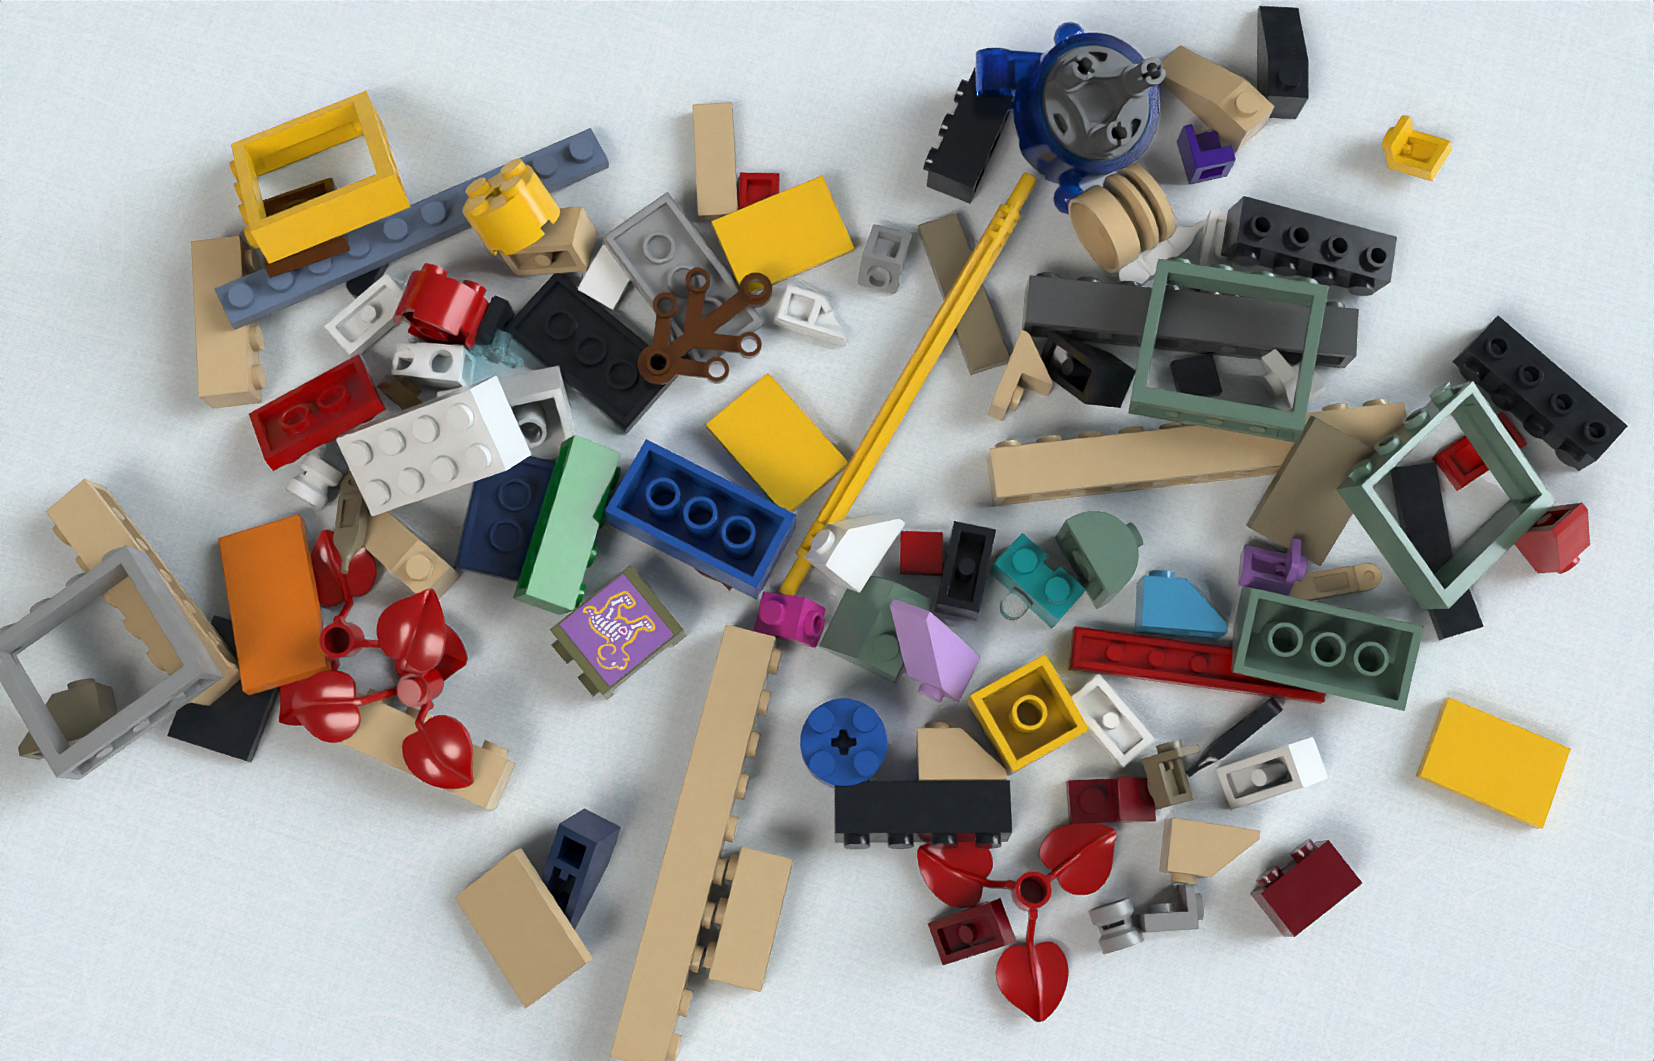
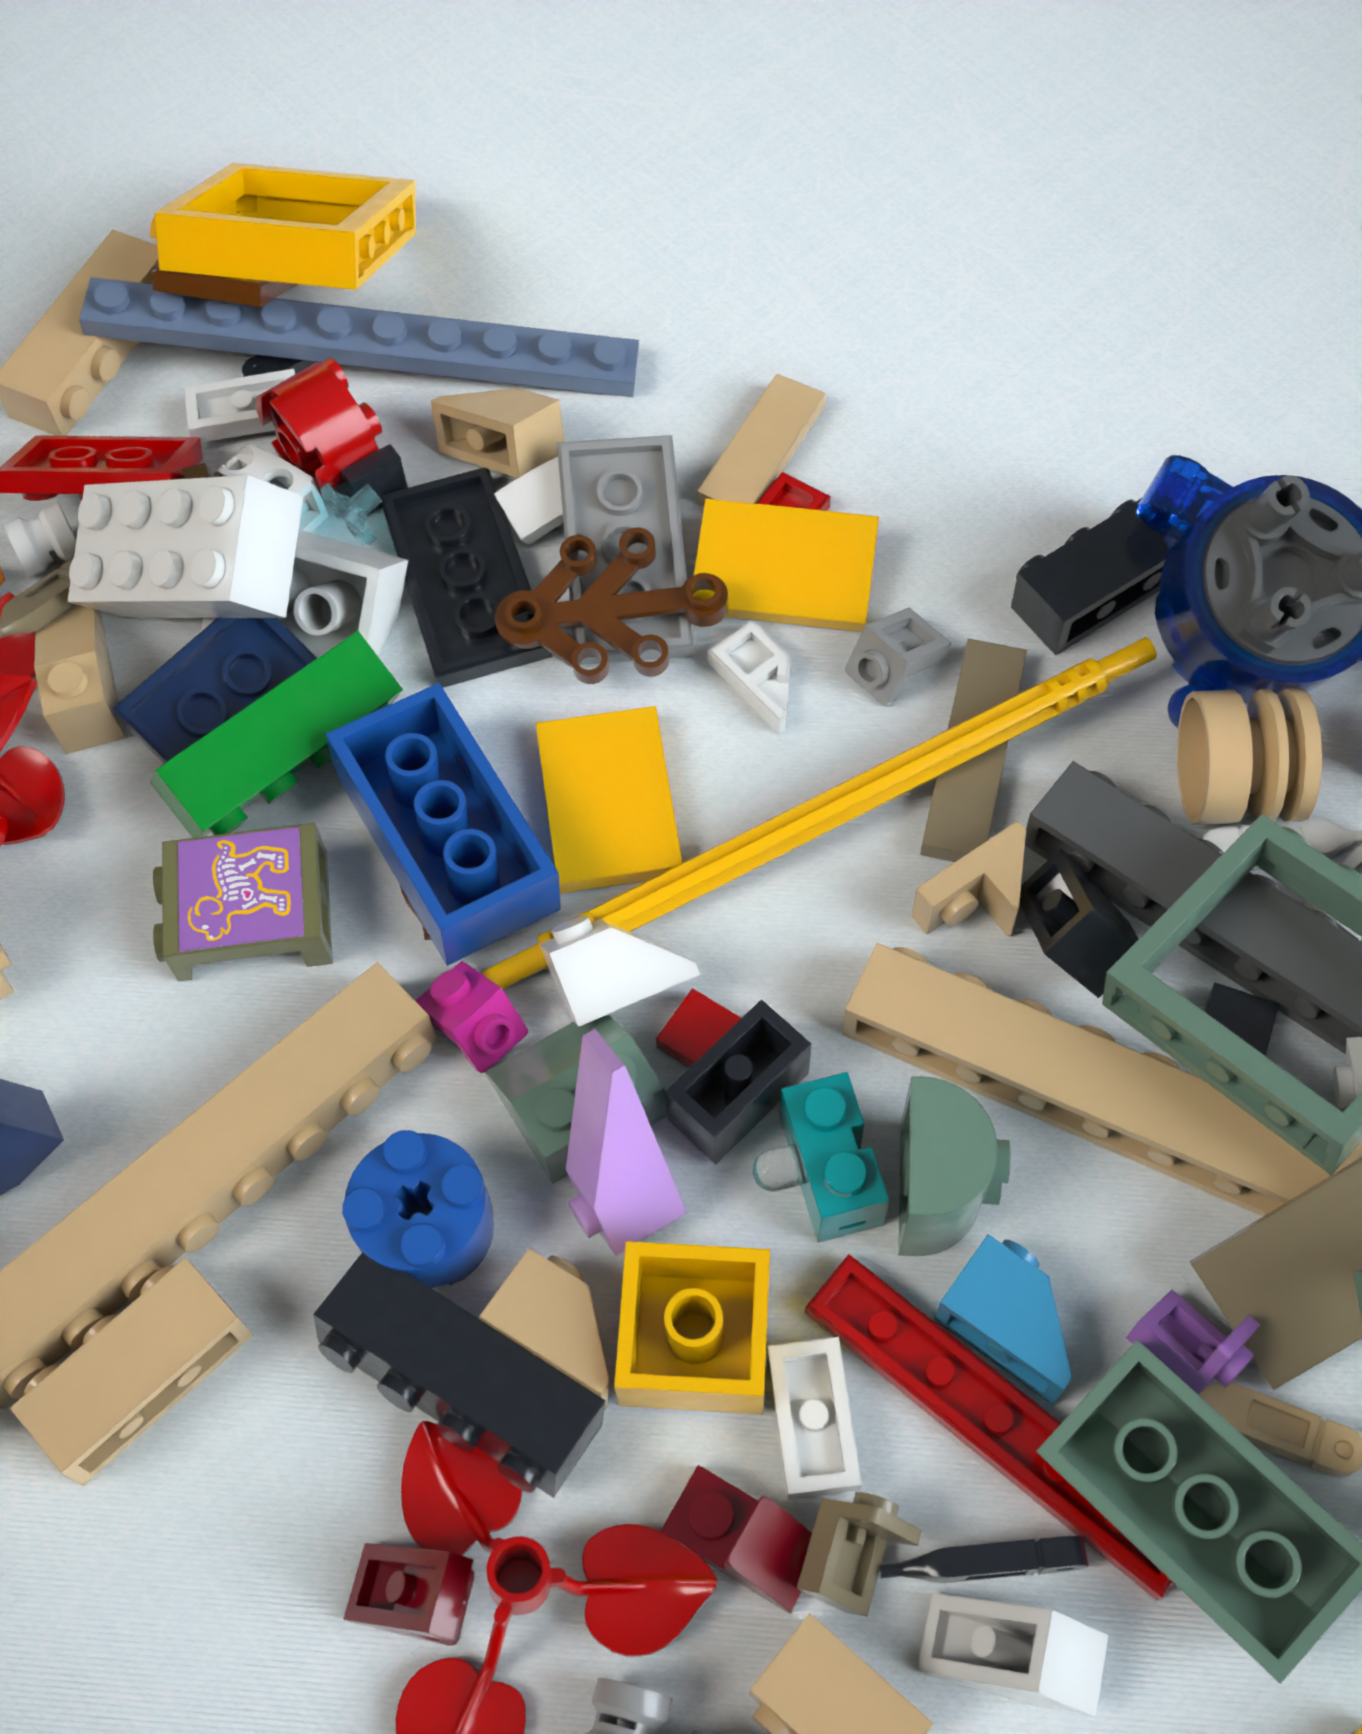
camera: 35 degrees right, 15 degrees down
(509, 208) = (470, 353): yellow brick -> none

